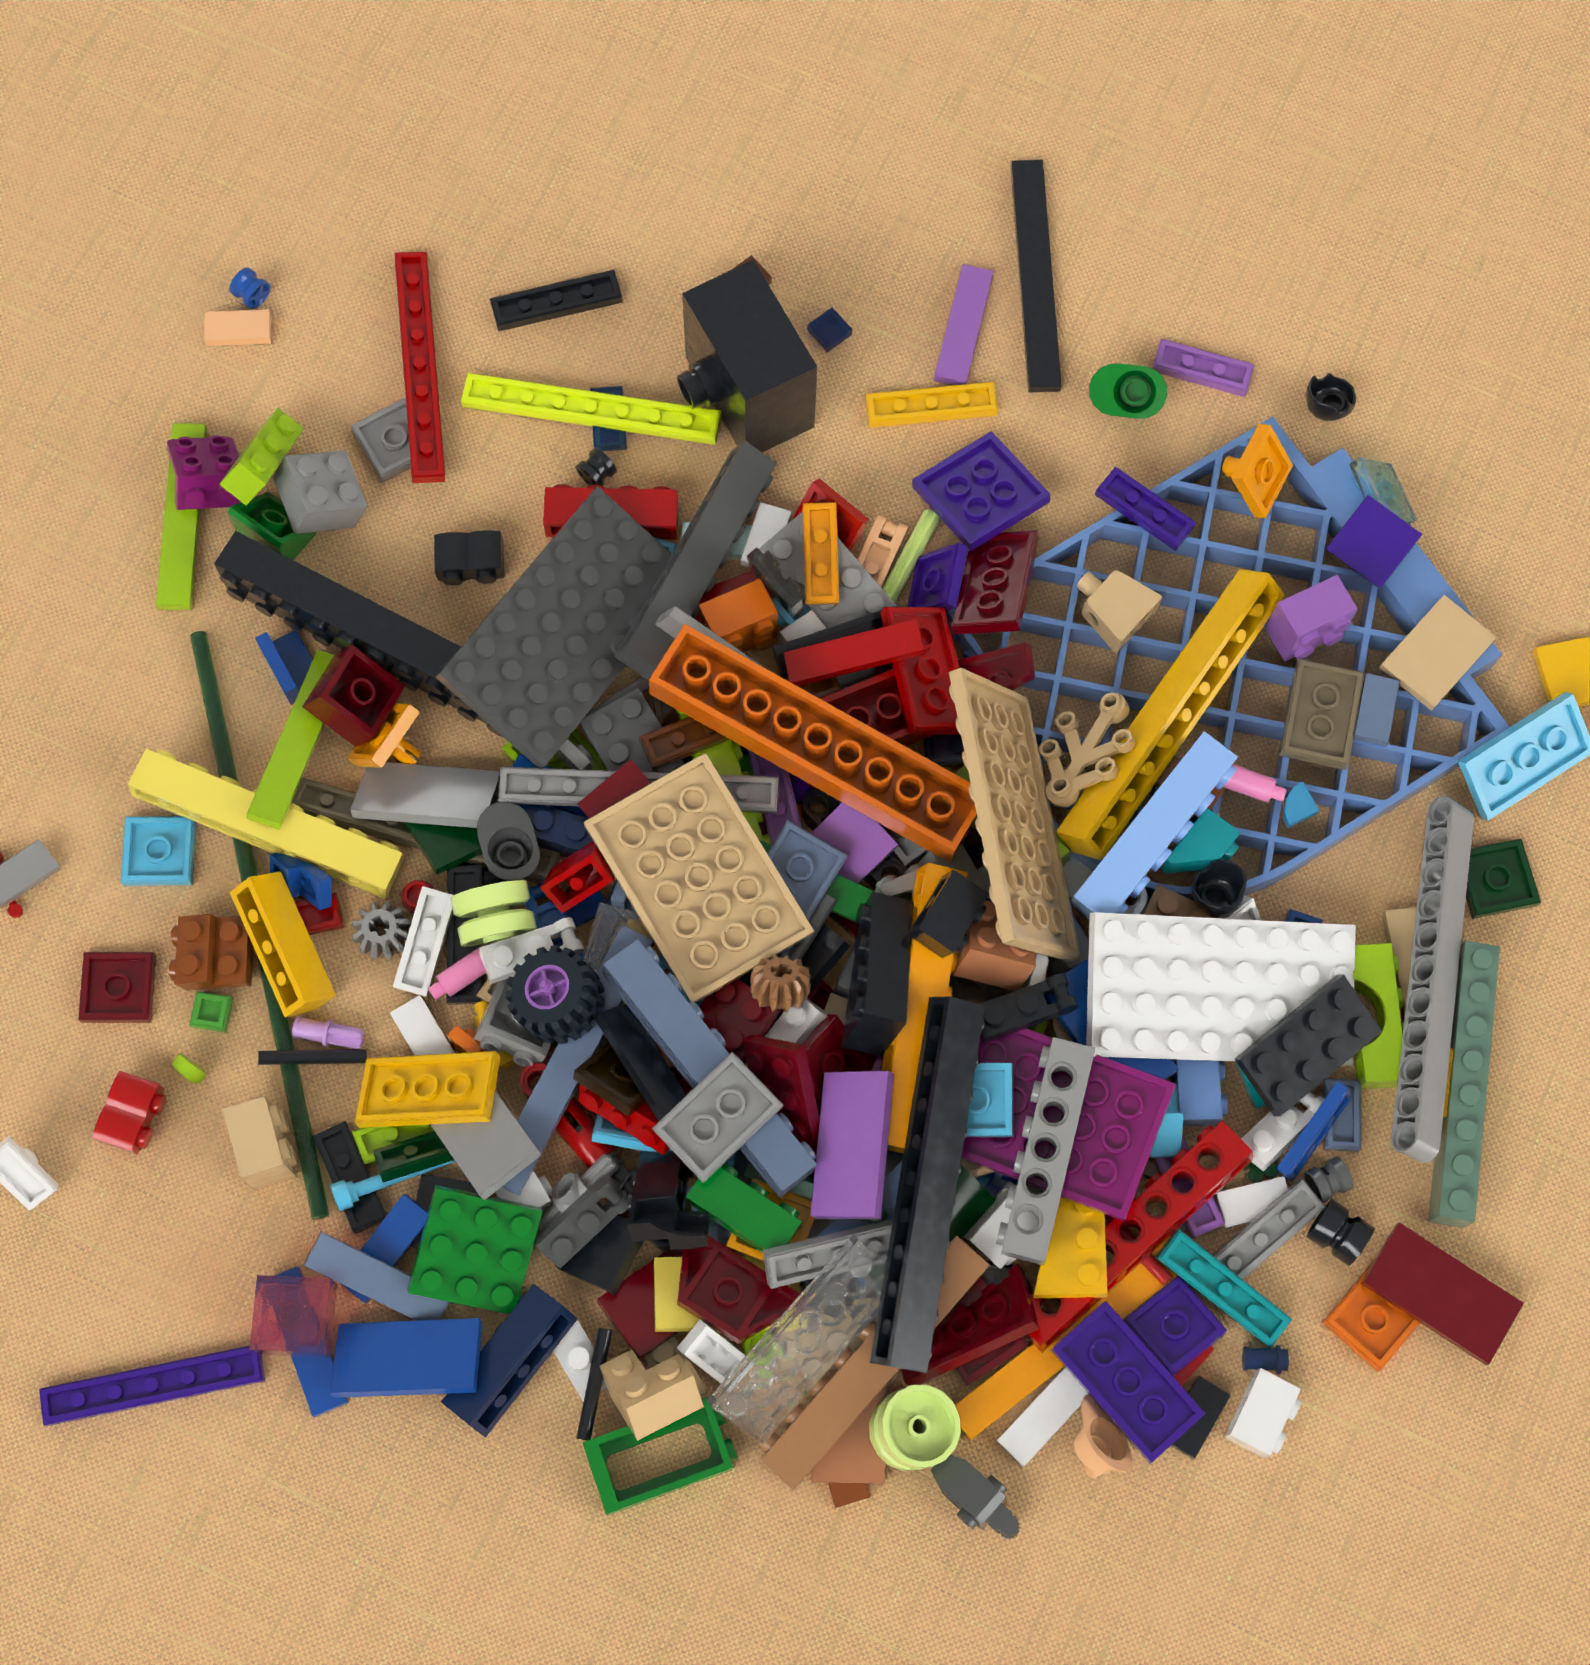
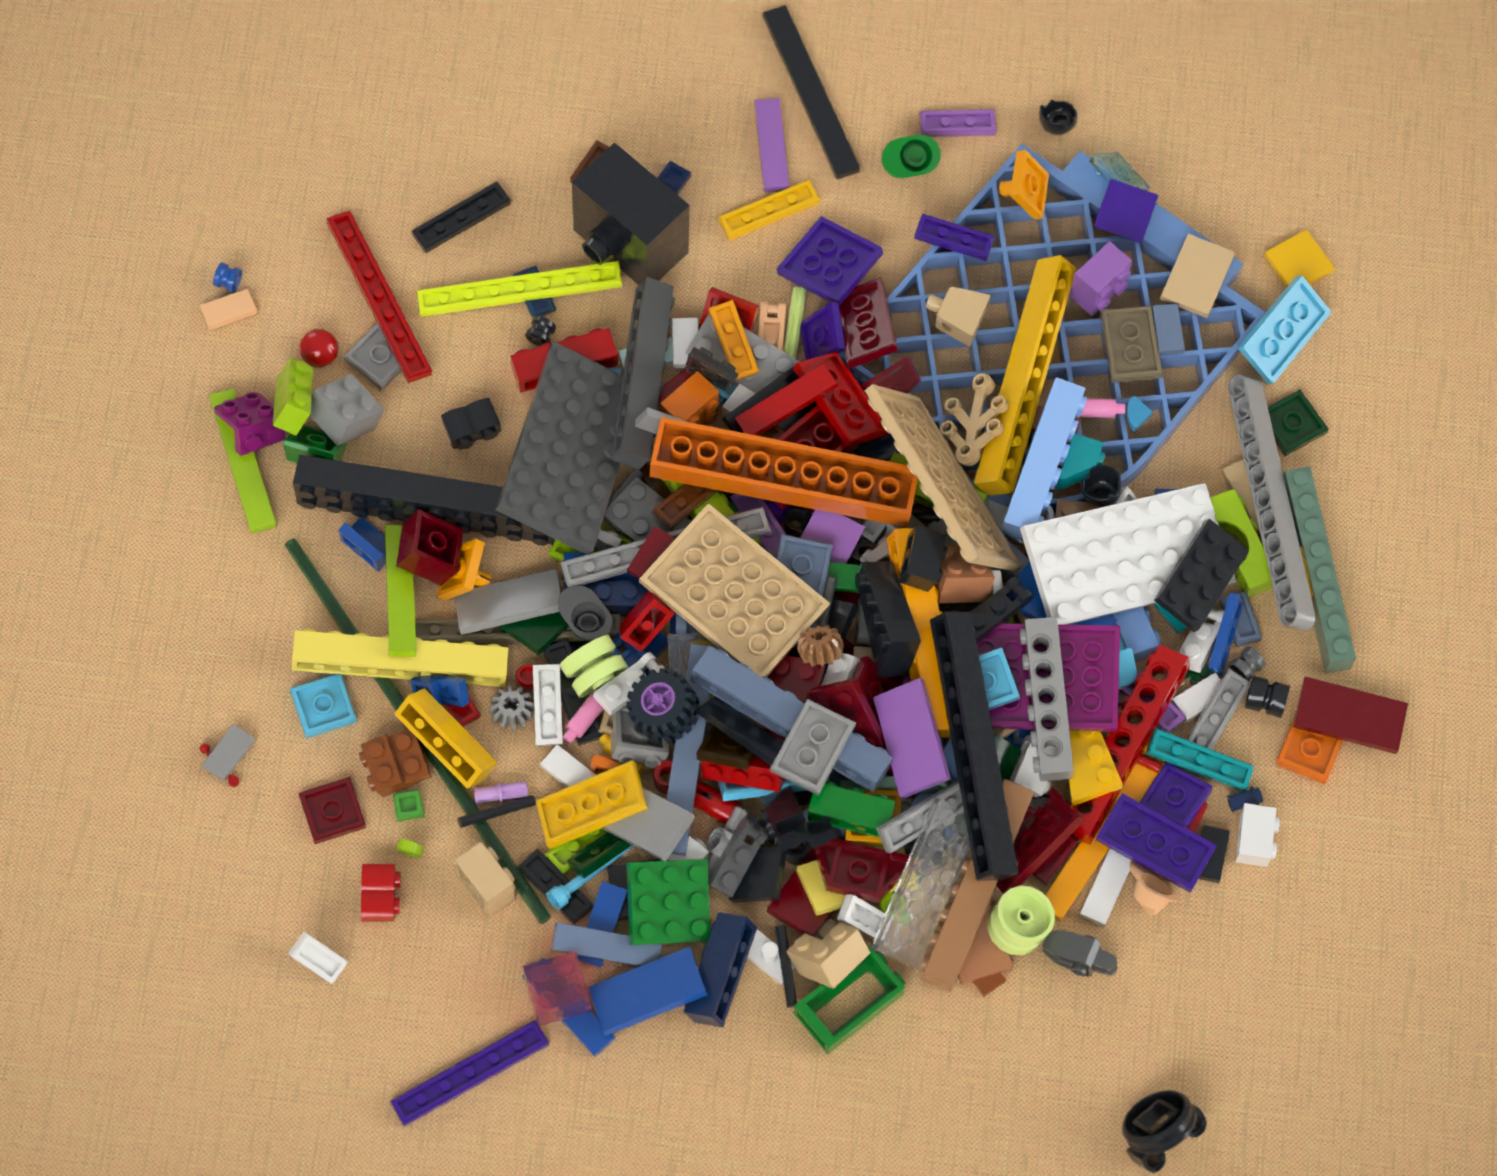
camera: 20 degrees left, 5 degrees down
(324, 406) = (318, 348): none -> red hair

